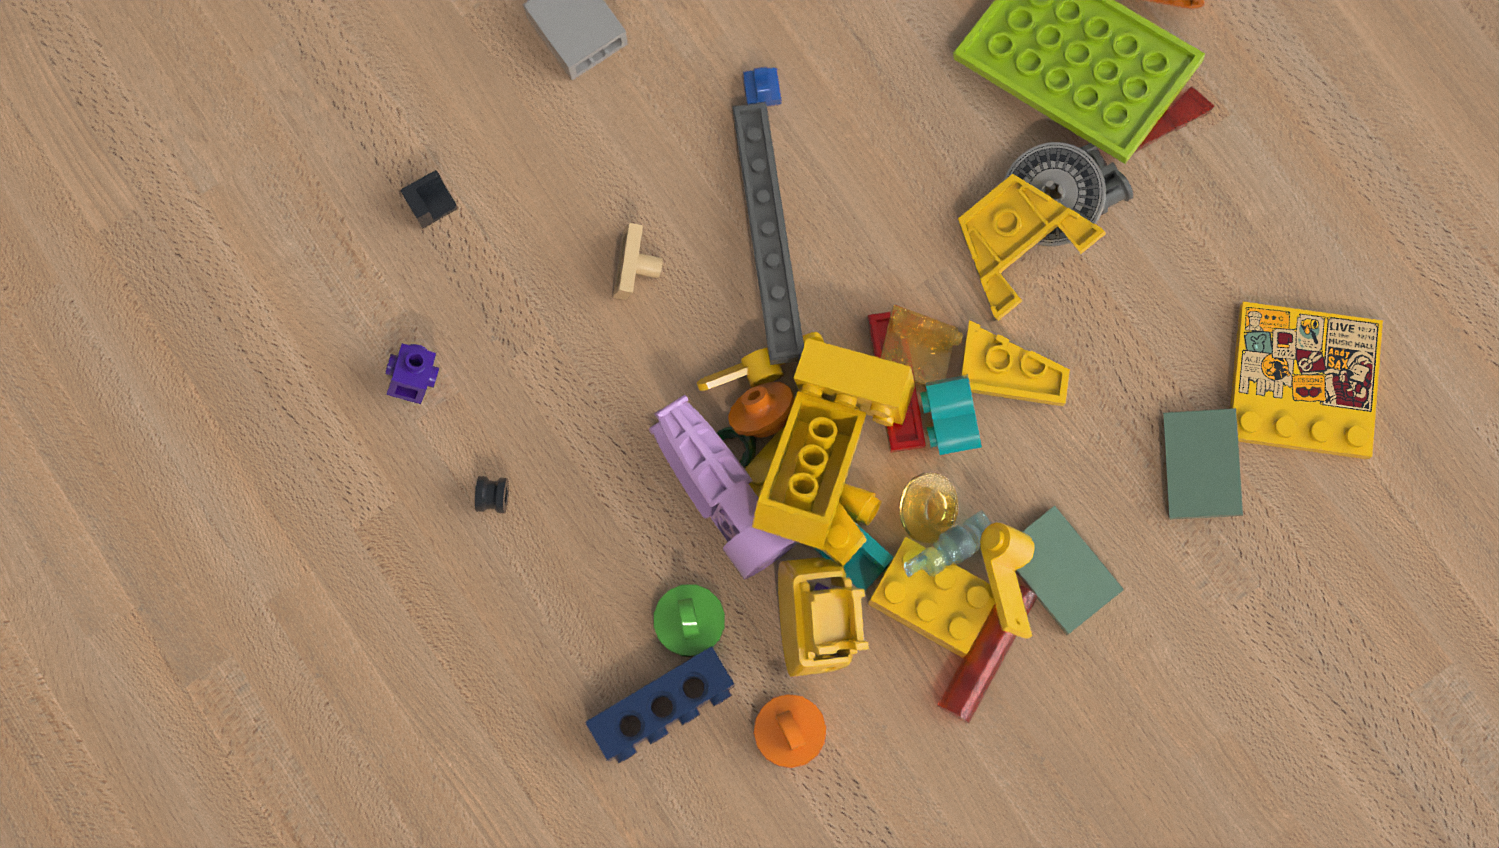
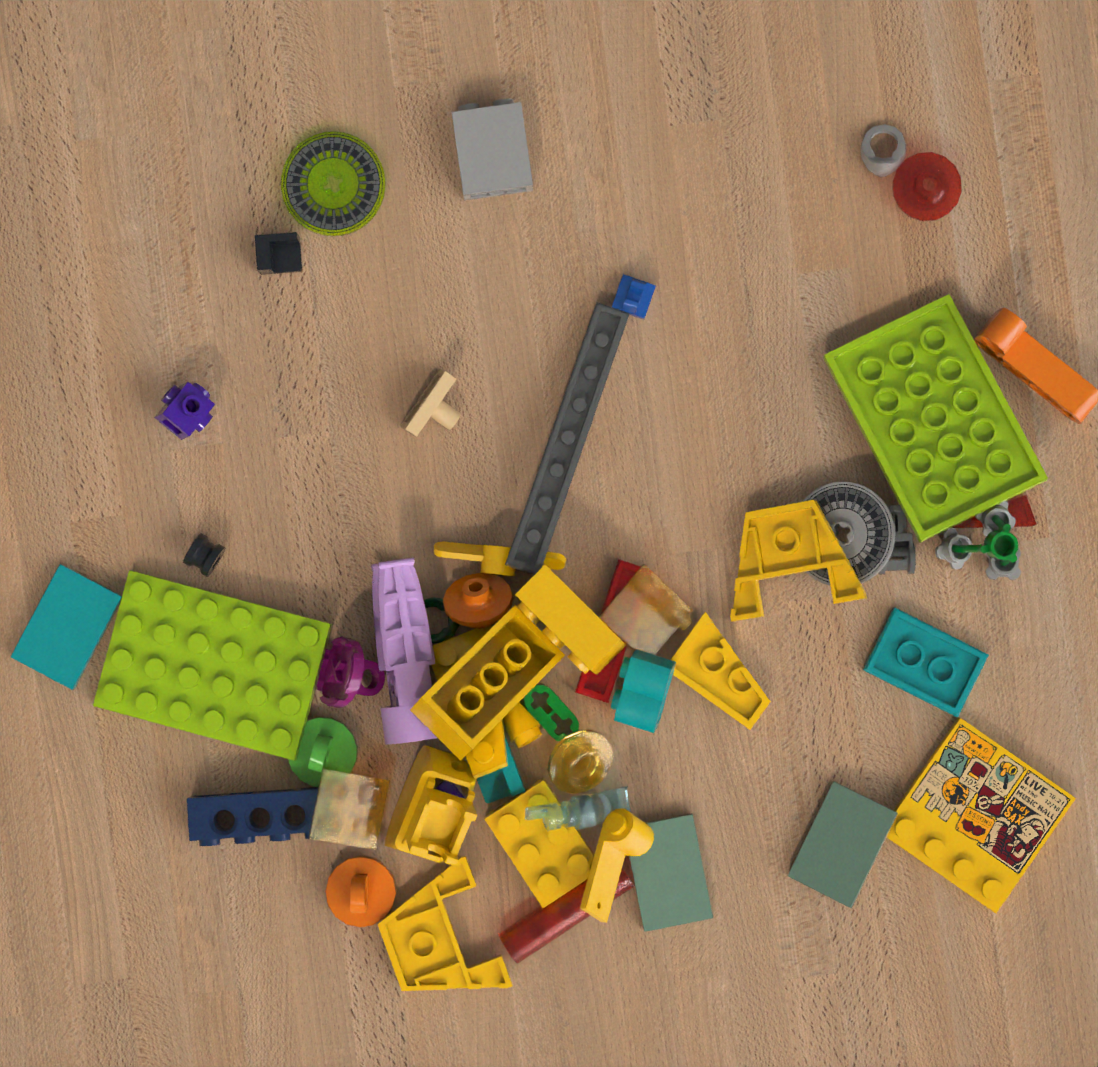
camera: 25 degrees right, 10 degrees up
(395, 625) = (67, 627): none -> teal tile
(448, 94) = (307, 174): none -> piece
(548, 591) = (212, 665): none -> lime plate
(671, 534) = (343, 673): none -> magenta tile
(741, 656) = (349, 809): none -> clear yellow hinge
(874, 748) = (425, 944): none -> yellow wing
(879, 470) = (545, 718): none -> green beam
(1185, 271) = (925, 662): none -> teal tile
(1188, 124) = (999, 544): none -> light grey plant

